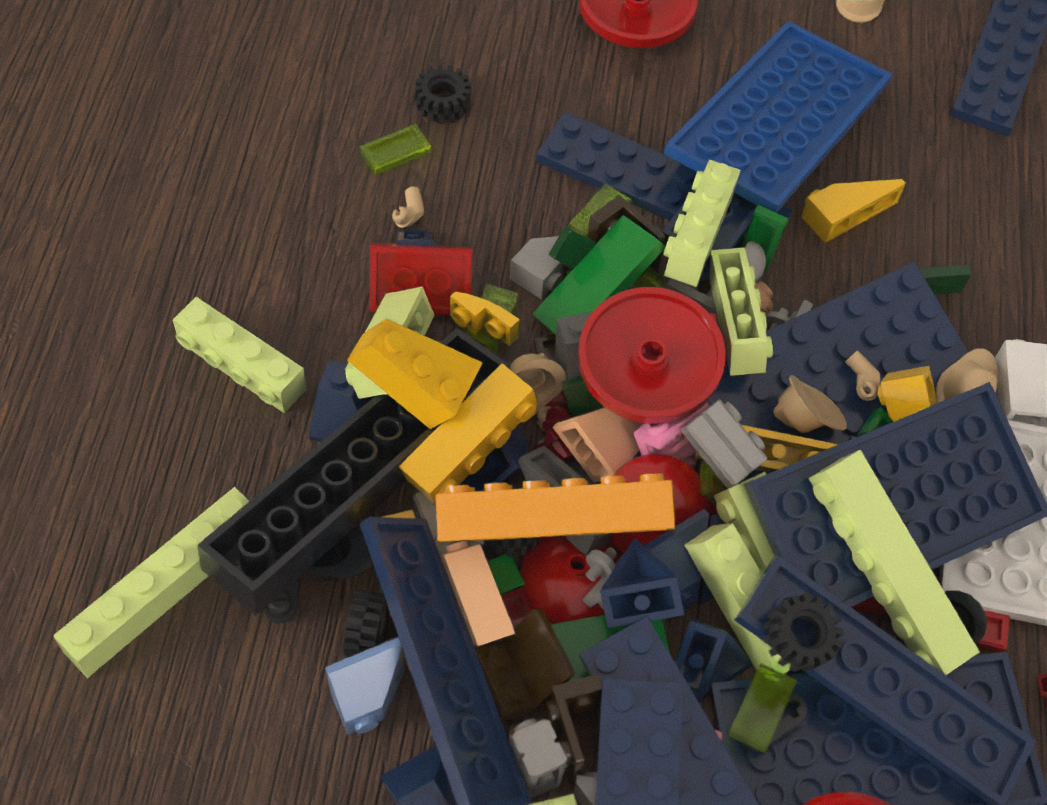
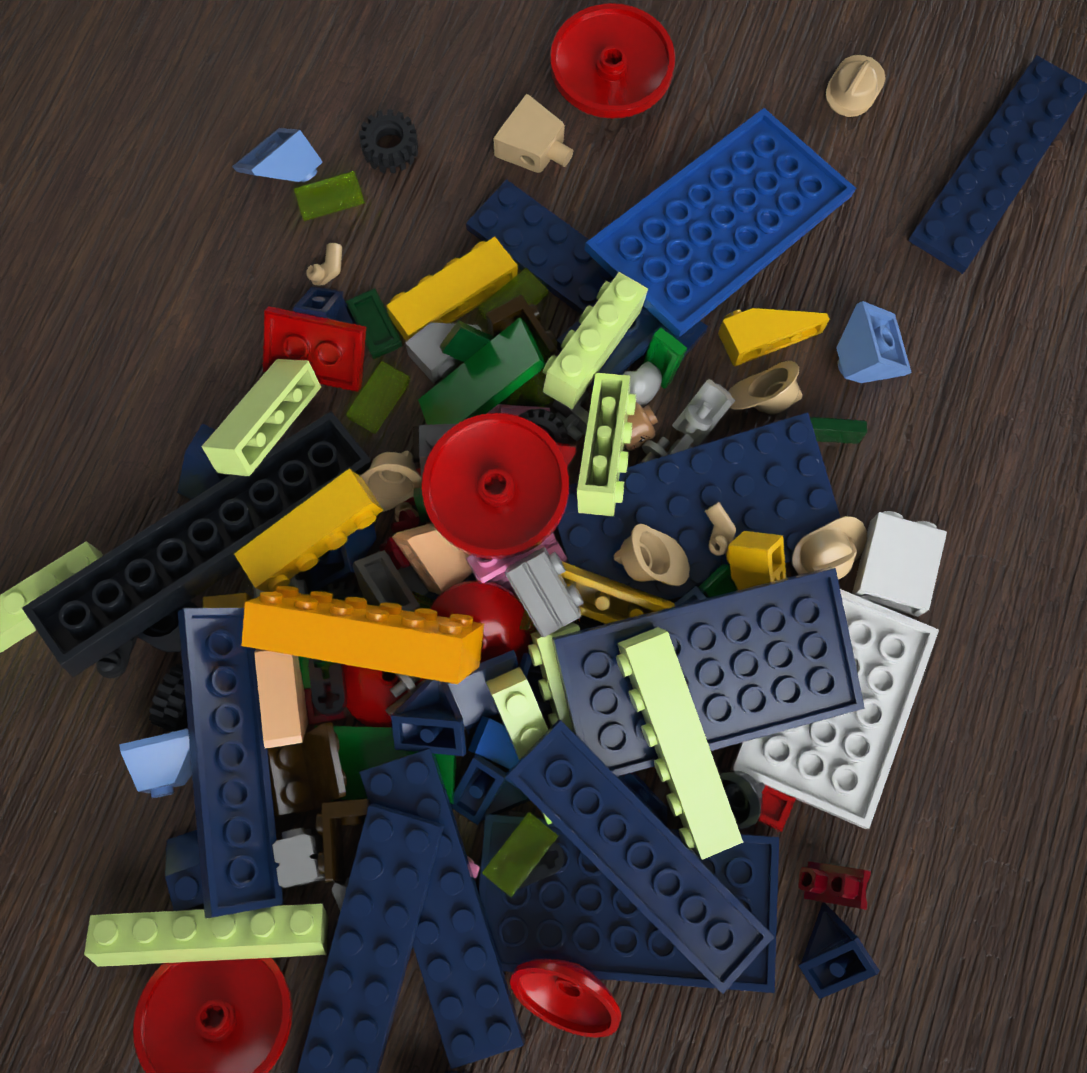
camera: 15 degrees right, 15 degrees up
(240, 354) = (127, 400): yellowish green brick -> none
(343, 119) = (281, 156): none -> medium blue slope
(415, 370) = (260, 465): yellow wedge -> none
(477, 313) = (362, 398): yellow slope -> none
(484, 262) = (380, 332): none -> dark green tile
(521, 581) = (319, 690): none -> black beam
(541, 211) = (454, 289): none -> yellow brick
(580, 73) = (532, 137): none -> tan torso
(702, 606) = (493, 743): none -> blue tile
(815, 277) = (704, 411): none -> light grey hips
(820, 619) = (584, 815): black tyre -> none
(868, 255) = (768, 390): none -> tan piece
(948, 205) = (872, 346): none -> medium blue slope

